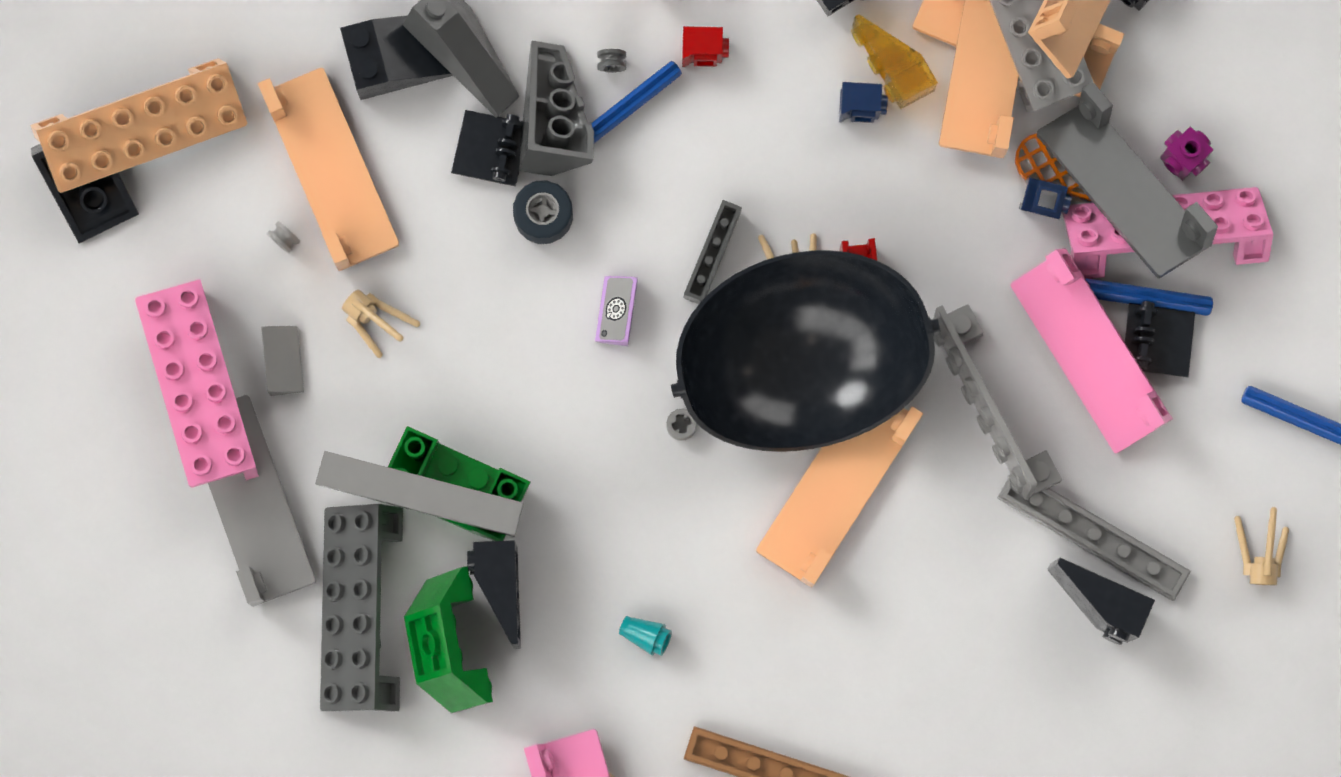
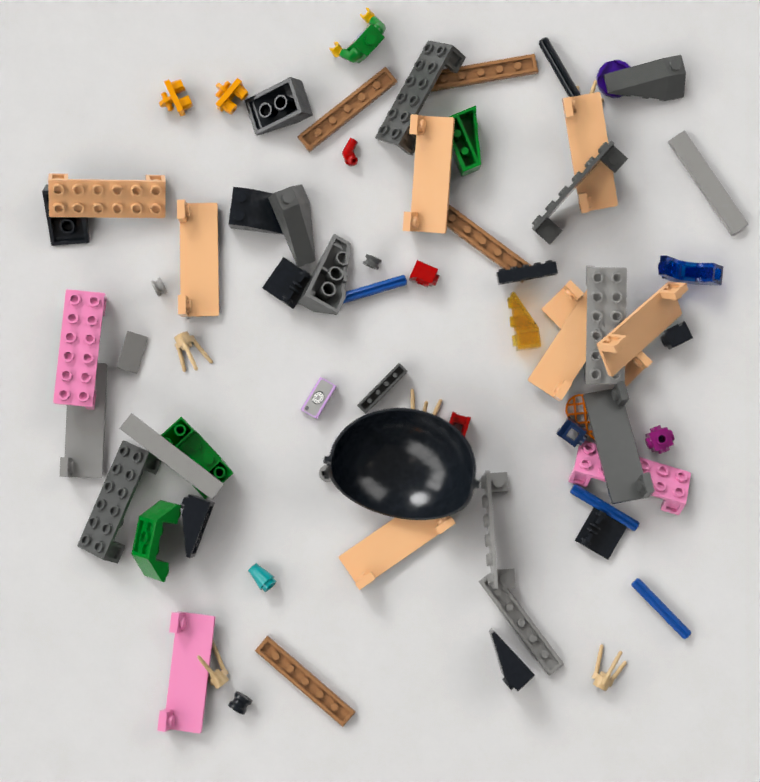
camera: 30 degrees right, 5 degrees up
(543, 199) = (301, 329): black wheel -> none
(862, 102) = (496, 339): dark blue window -> none
(1090, 351) = (561, 525): bright pink bracket -> none

